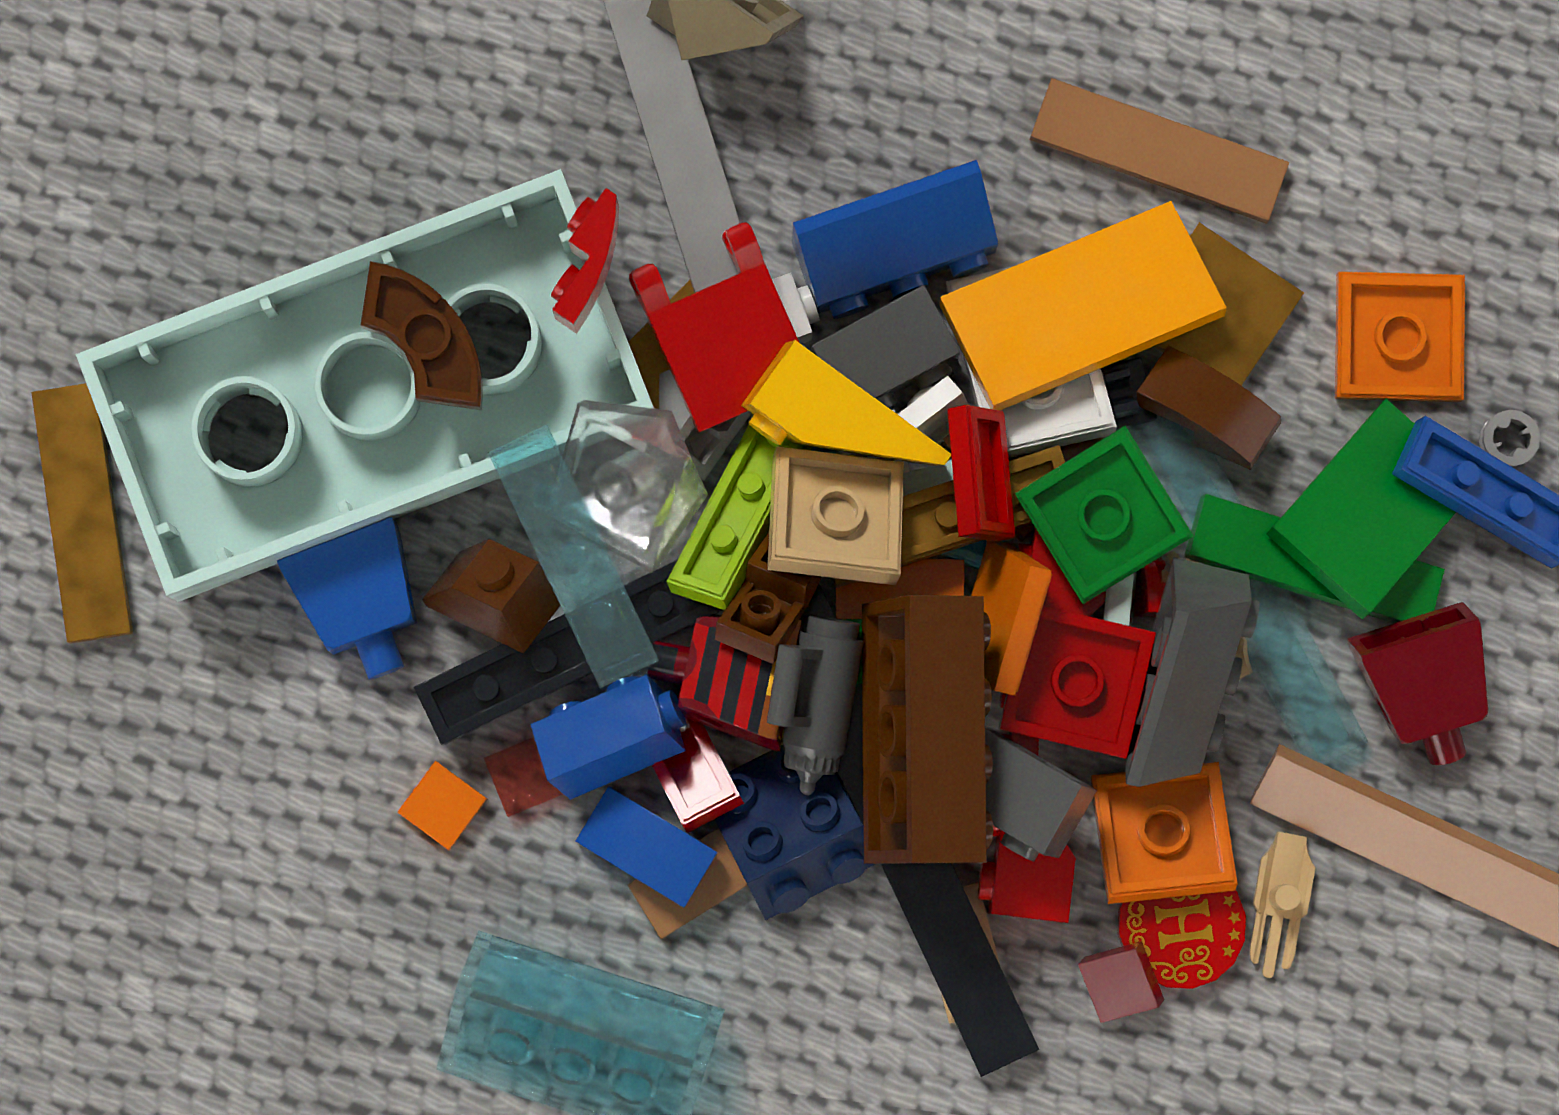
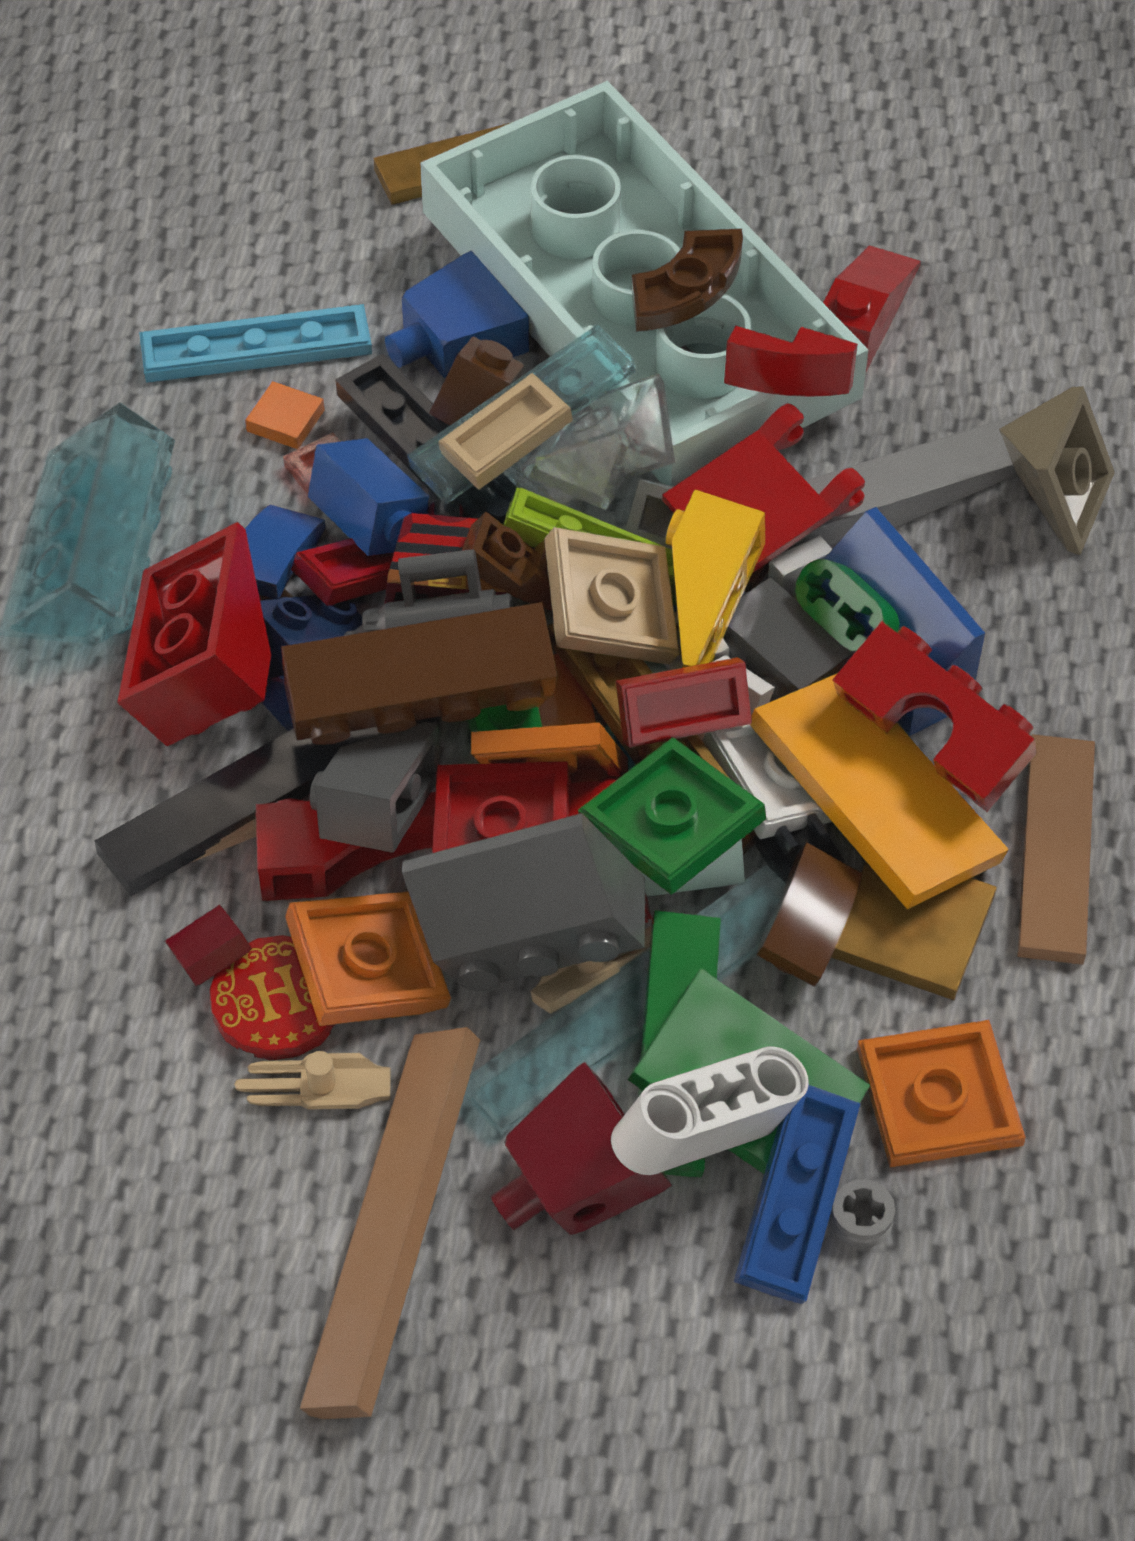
camera: 80 degrees right, 30 degrees down
(326, 822) = (255, 343): none -> medium azure tile
(417, 137) = (870, 294): none -> red slope
(609, 580) = (505, 431): none -> tan tile
(769, 943) = (196, 639): none -> red slope
(883, 281) = (854, 596): none -> green beam
(999, 256) = (896, 676): none -> red arch
(1437, 580) = (709, 1110): none -> white beam

